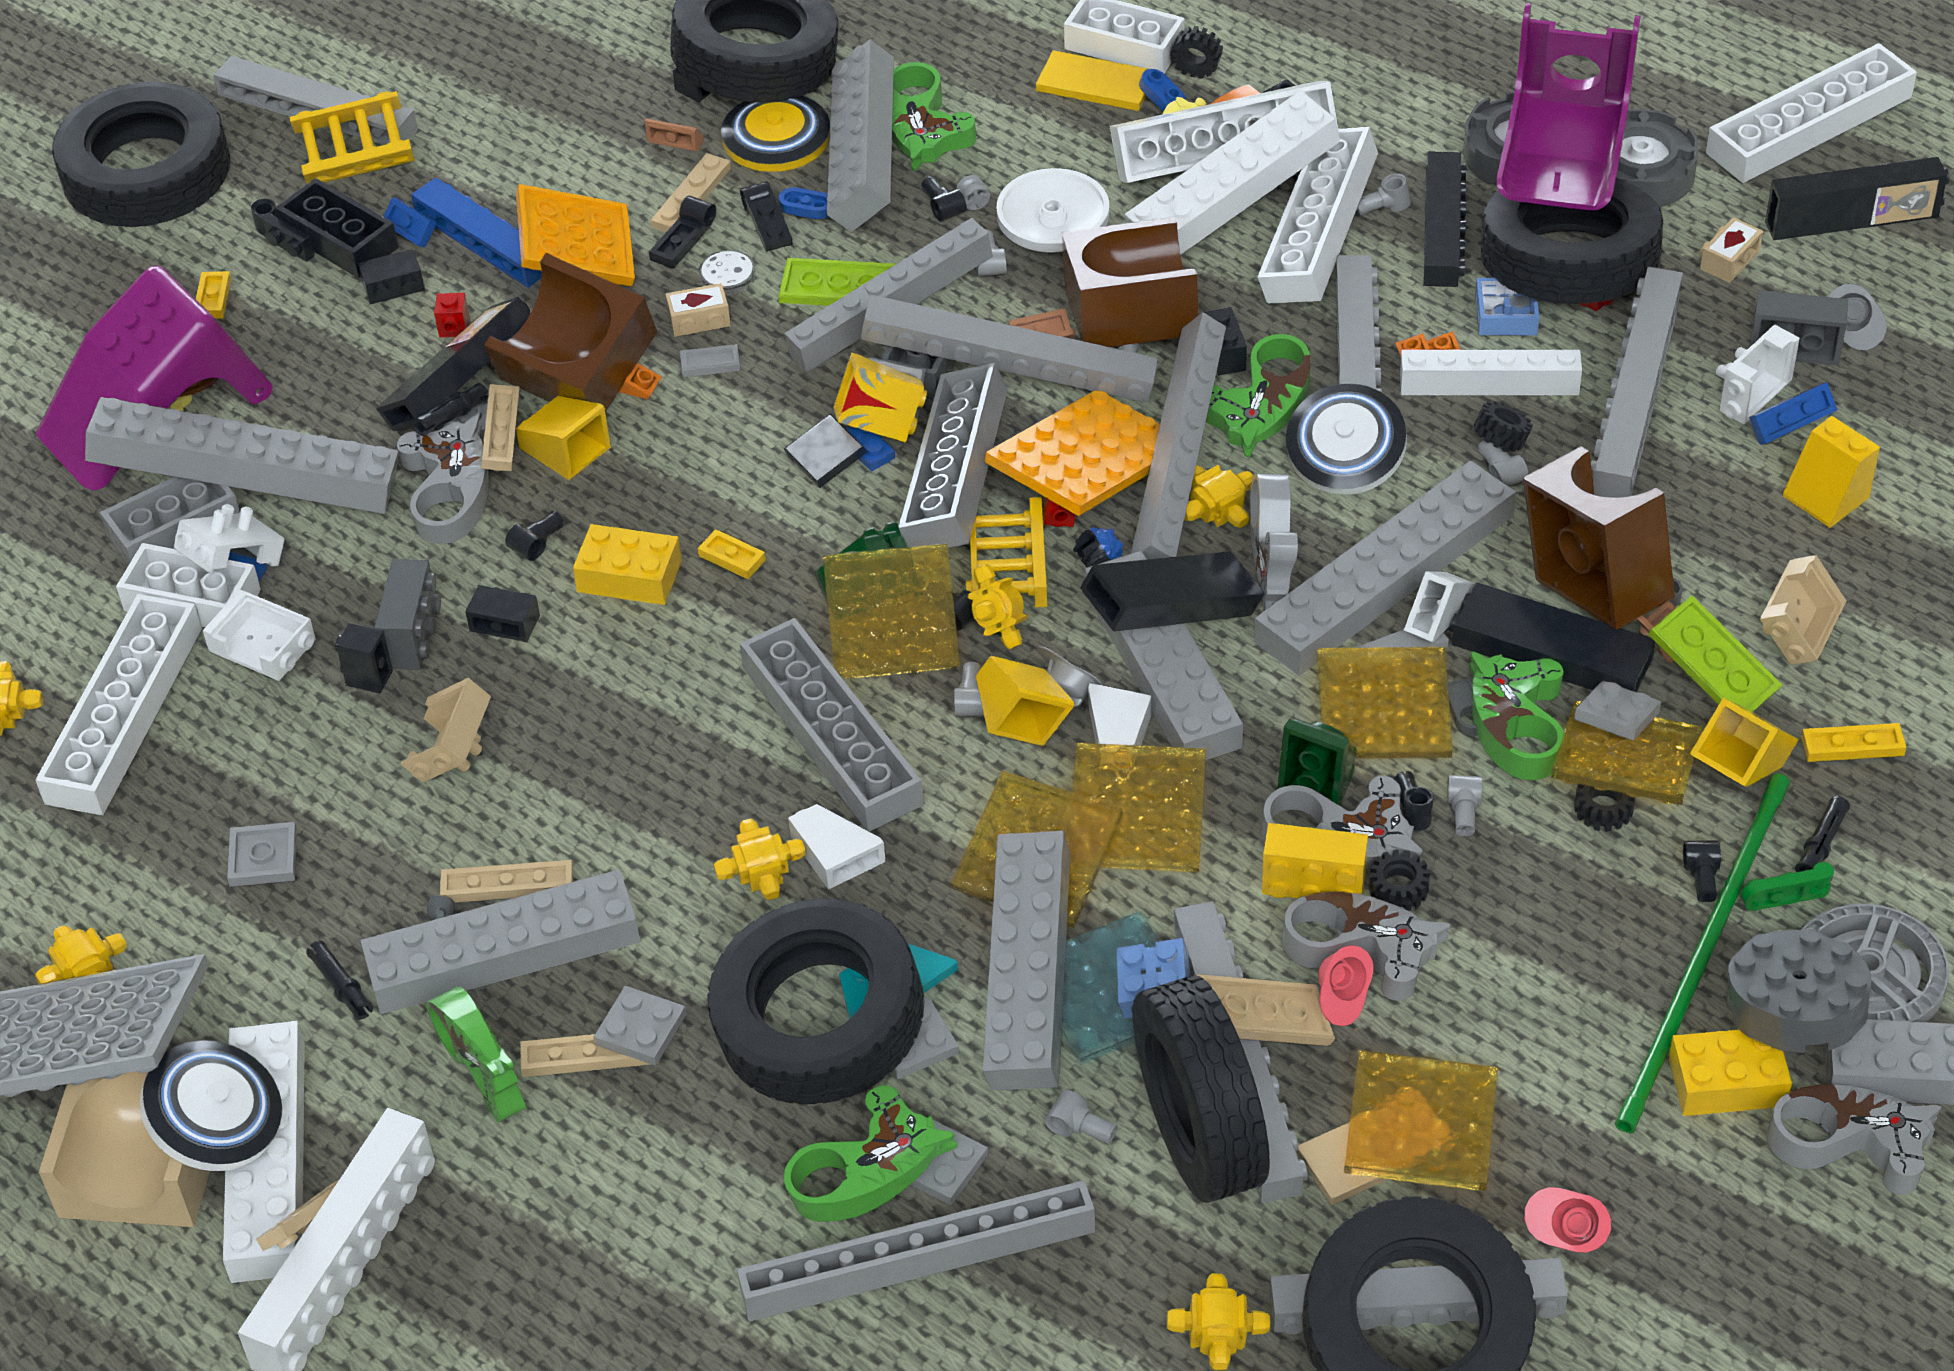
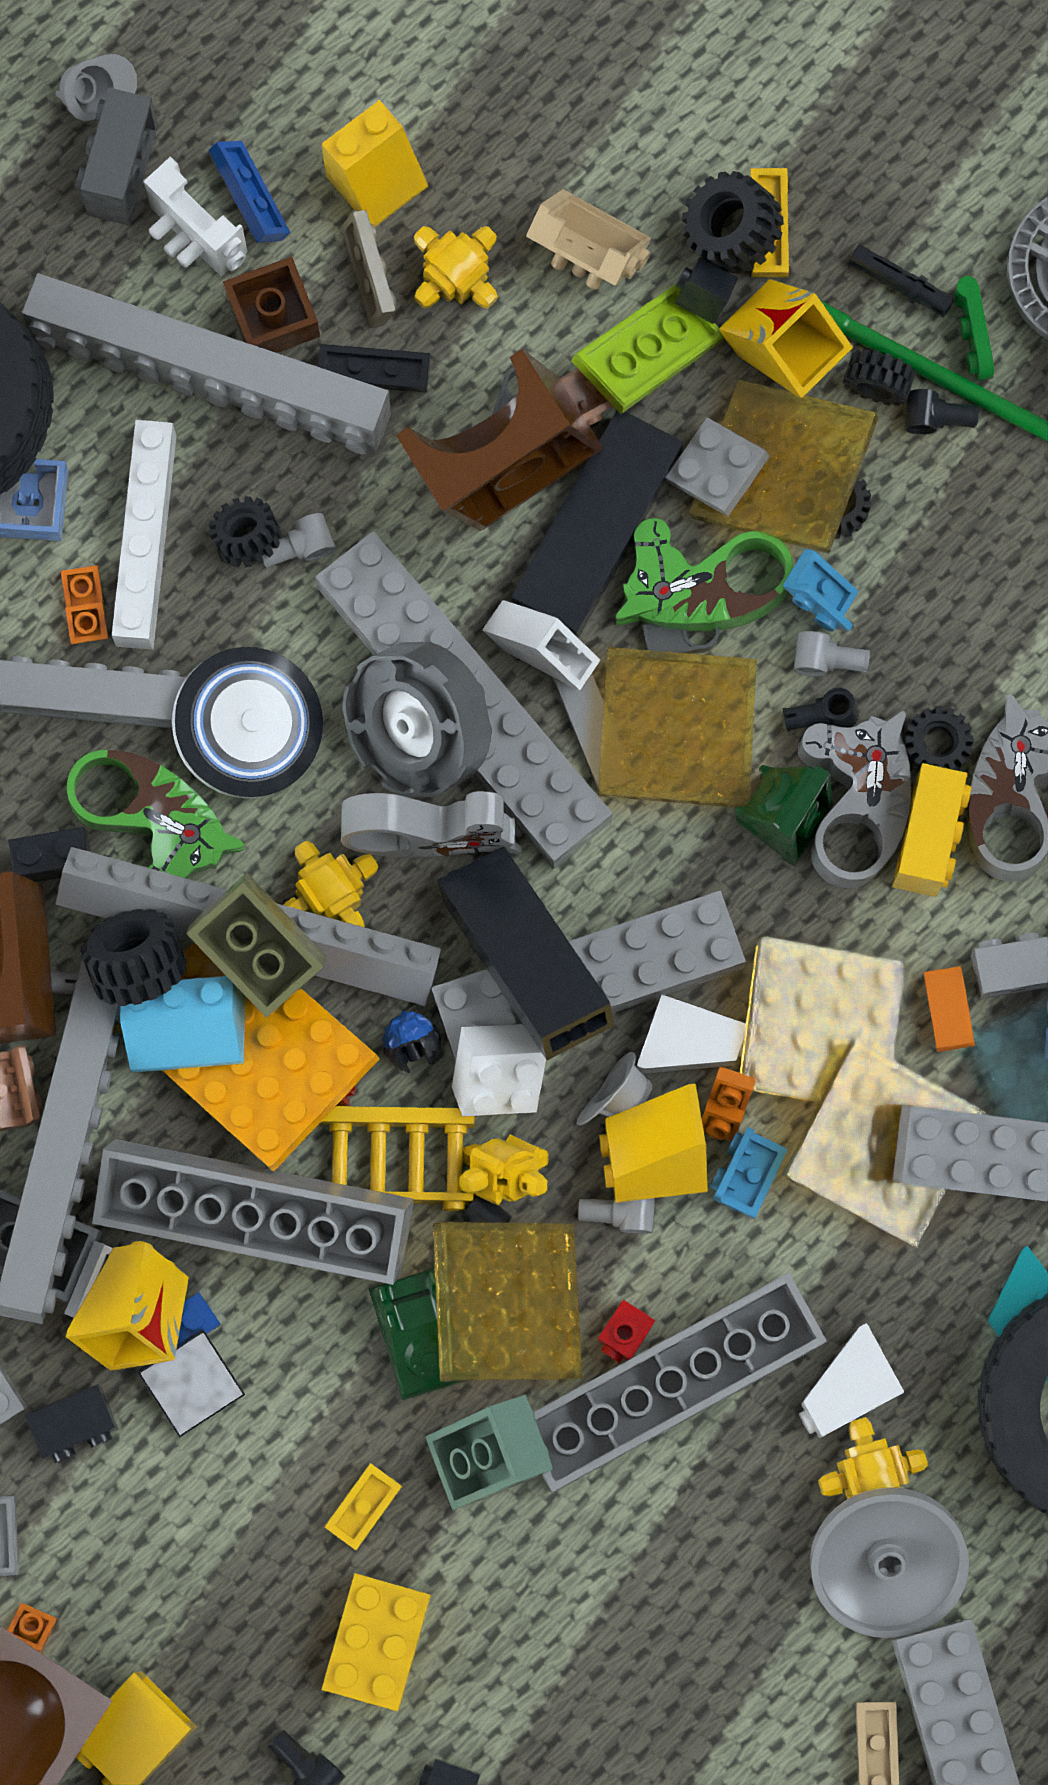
camera: 90 degrees left, 30 degrees up
(684, 865) = (889, 1562): none -> light grey dish
(770, 600) = (489, 1452): none -> sand green brick
(792, 387) = (72, 1423): none -> black brick
(877, 696) = (625, 1332): none -> red brick
(1009, 757) = (749, 1172): none -> dark azure bracket
(1062, 745) = (727, 1104): none -> orange slope
(1063, 600) = (497, 1071): none -> white brick
(1097, 405) = (186, 1027): none -> medium azure slope
(1142, 360) = (133, 957): none -> black tyre
(1155, 896) = (949, 1009): none -> orange slope
(1157, 419) = (256, 945): none -> olive brick
(1357, 515) = (417, 718): none -> dark grey piece
(1518, 783) = (821, 591): none -> dark azure bracket
(1661, 476) = (378, 367): none -> black plate
(1693, 427) = (272, 307): none -> reddish brown brick
(1723, 813) = (879, 377): none -> black tyre
(1744, 488) = (368, 268): none -> dark tan plate
(1757, 536) = (455, 267): none -> yellow piece
(1777, 695) = (705, 289): none -> black brick
(1841, 702) = (715, 204): none -> black tyre

